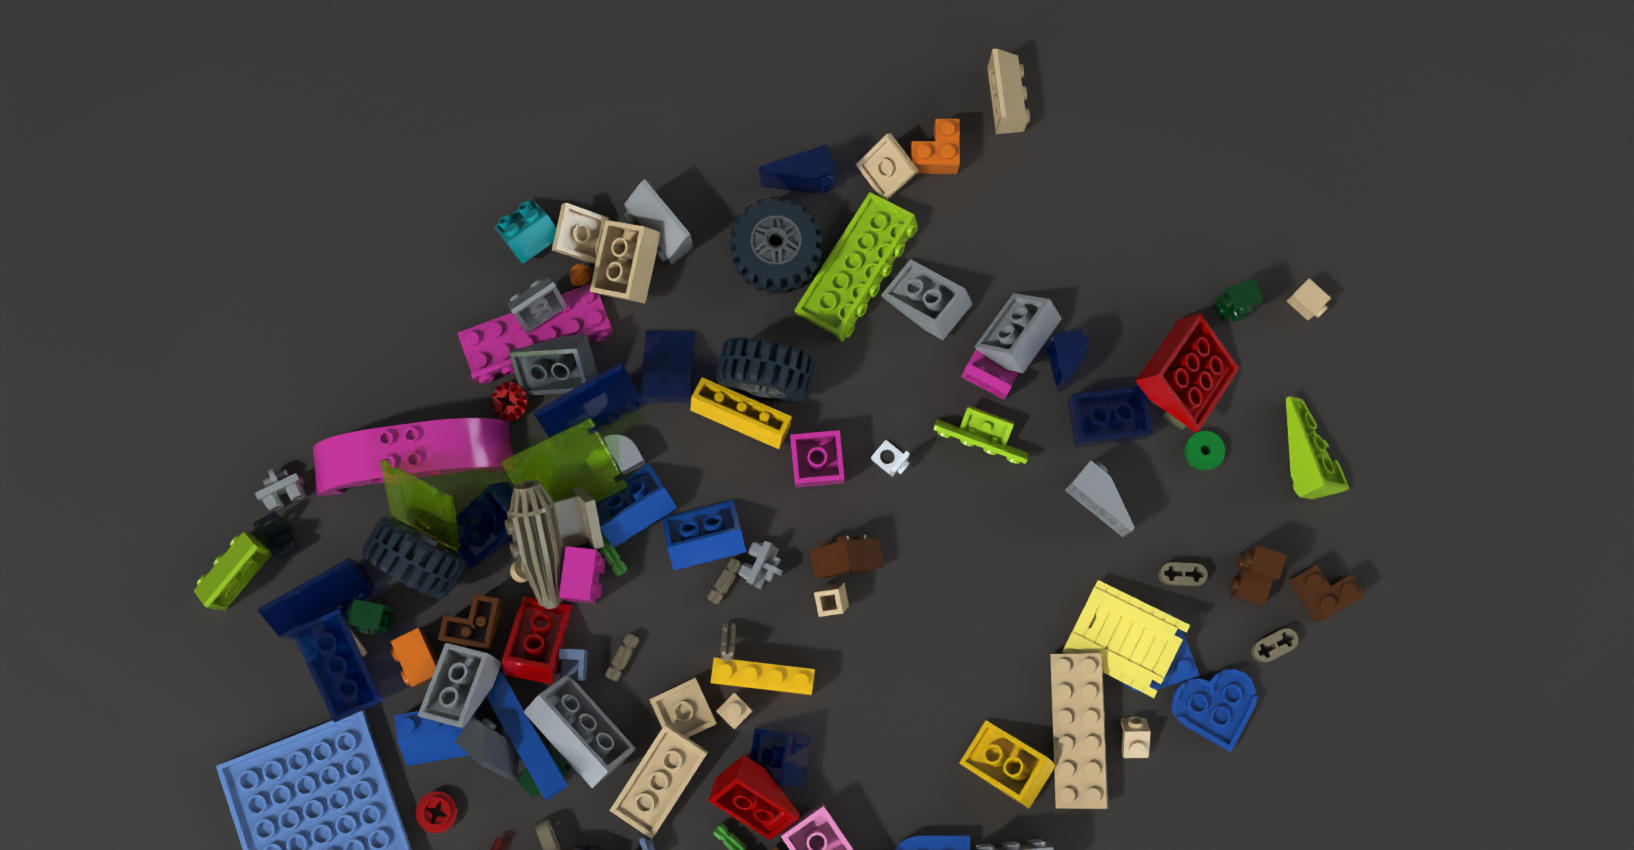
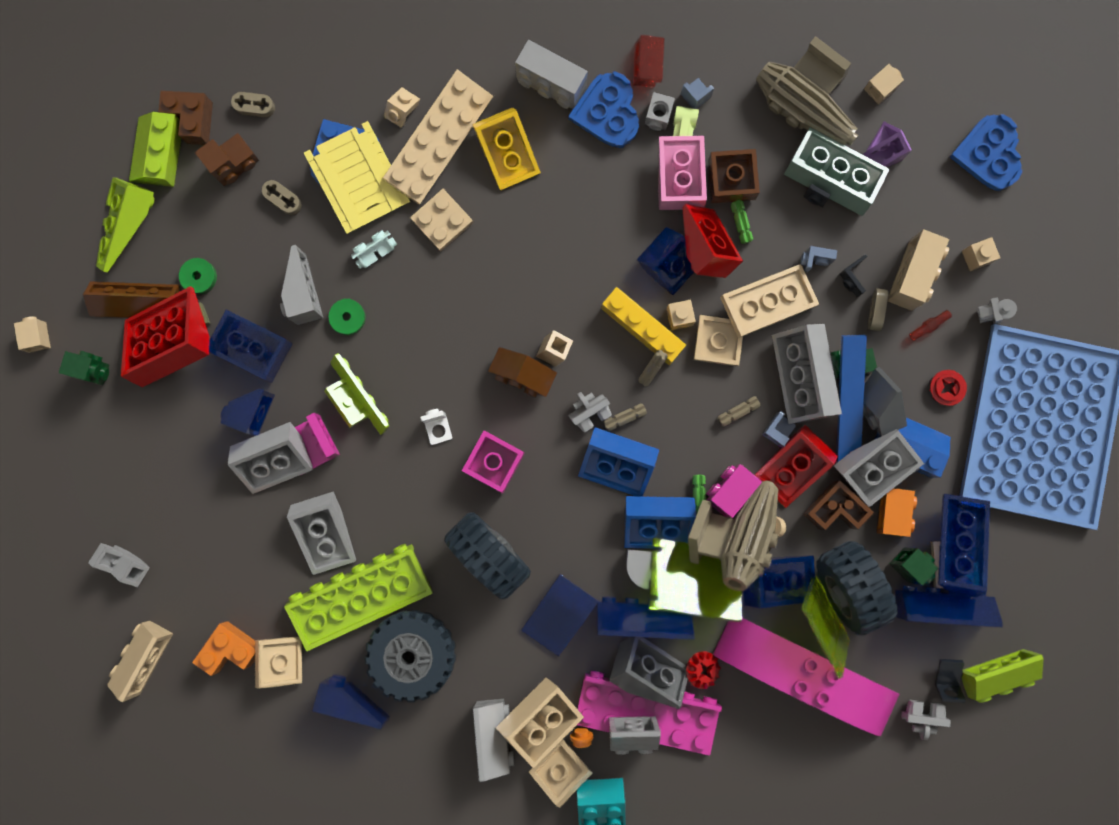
camera: 140 degrees left, 5 degrees up
(740, 413) = (528, 537): yellow brick -> none
(1020, 653) = (441, 220): none -> tan plate
(1052, 498) = (343, 307): none -> green piece
(1062, 591) = (366, 252): none -> light aqua hinge
(1081, 160) = (120, 563): none -> light grey brick
(1216, 707) = (326, 89): blue plate -> none
(1252, 388) = (124, 299): none -> reddish brown panel
(1330, 540) = (156, 149): none -> lime slope

